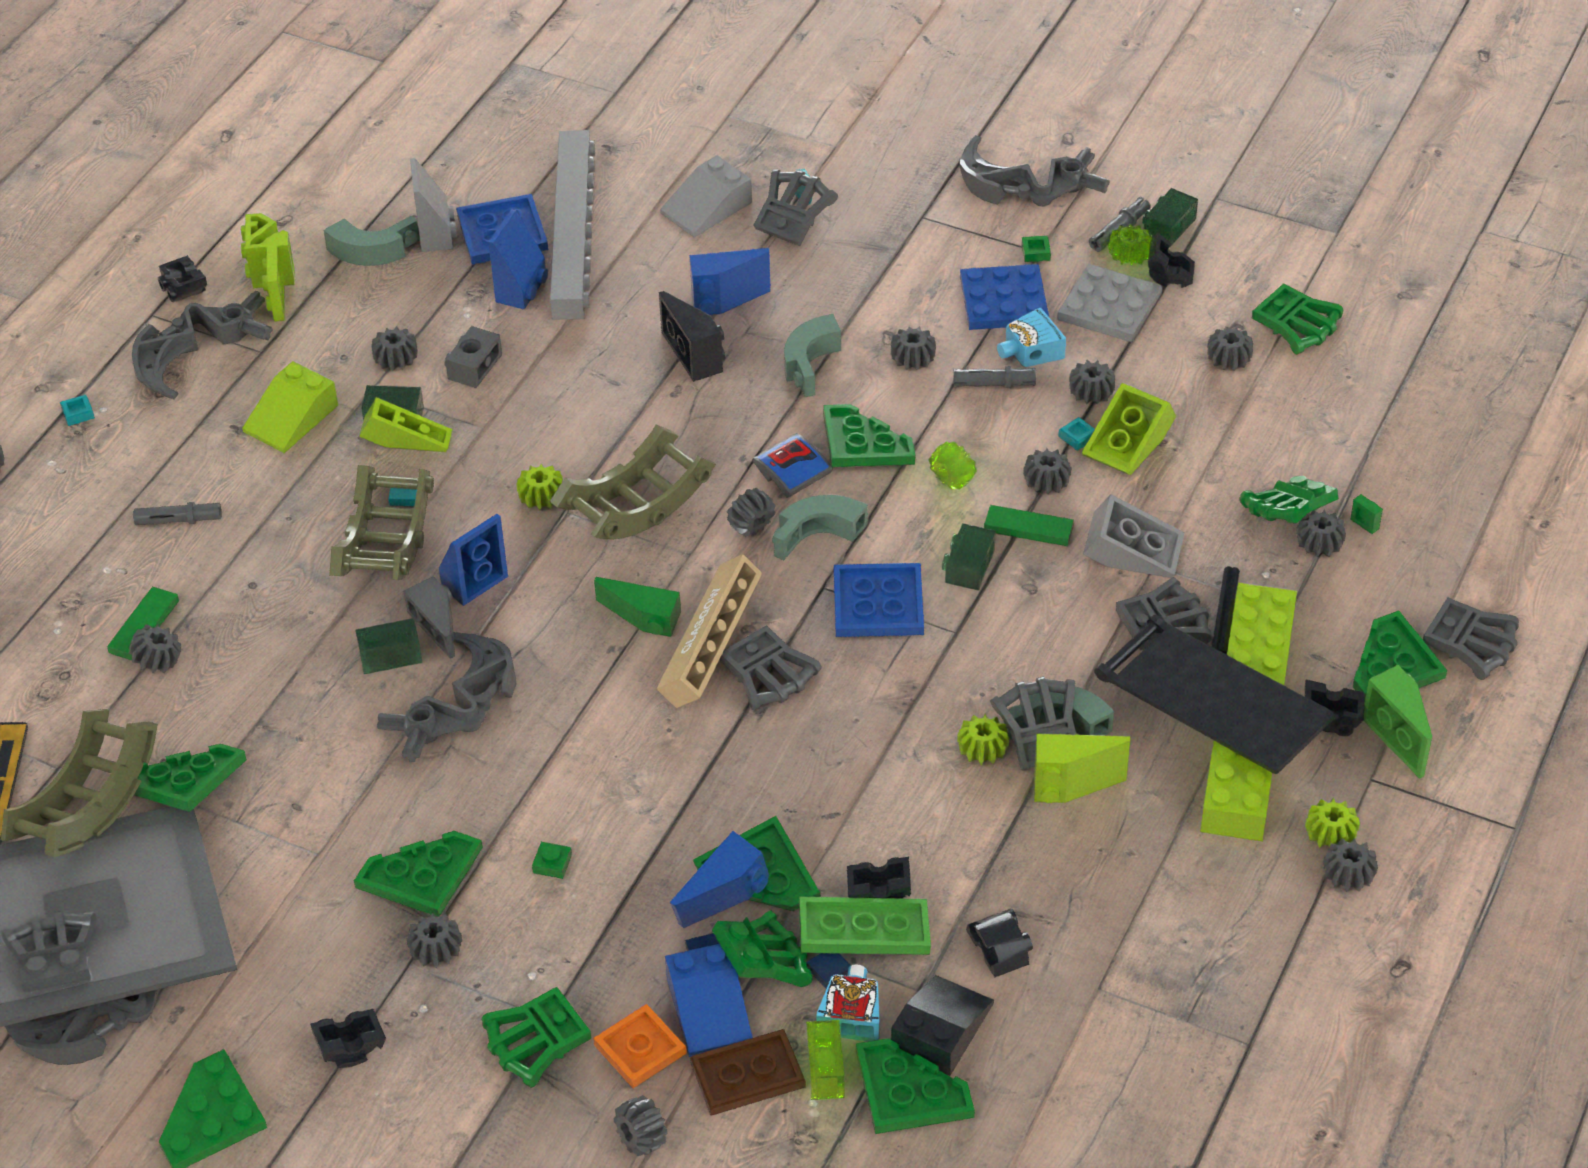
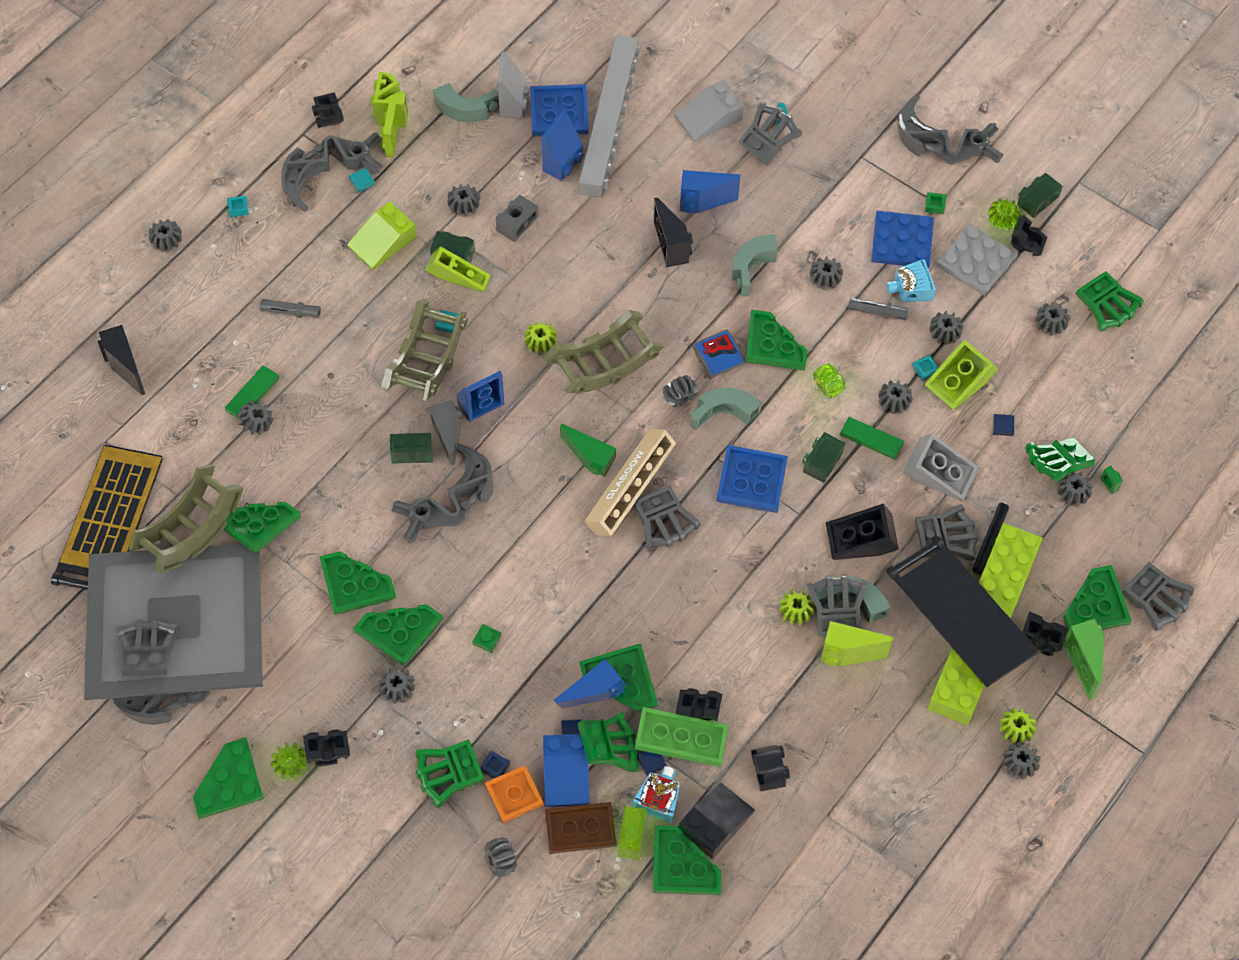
camera: 10 degrees right, 15 degrees up
(246, 351) = (361, 180): none -> teal tile
(296, 1066) = (292, 768): none -> clear neon green gear
(343, 826) = (354, 584): none -> green plate
(602, 1014) = (494, 765): none -> dark blue tile
(1049, 635) = (862, 534): none -> black slope
(1126, 216) = (1007, 189): dark grey pin -> none
(1202, 479) = (1003, 425): none -> dark blue tile

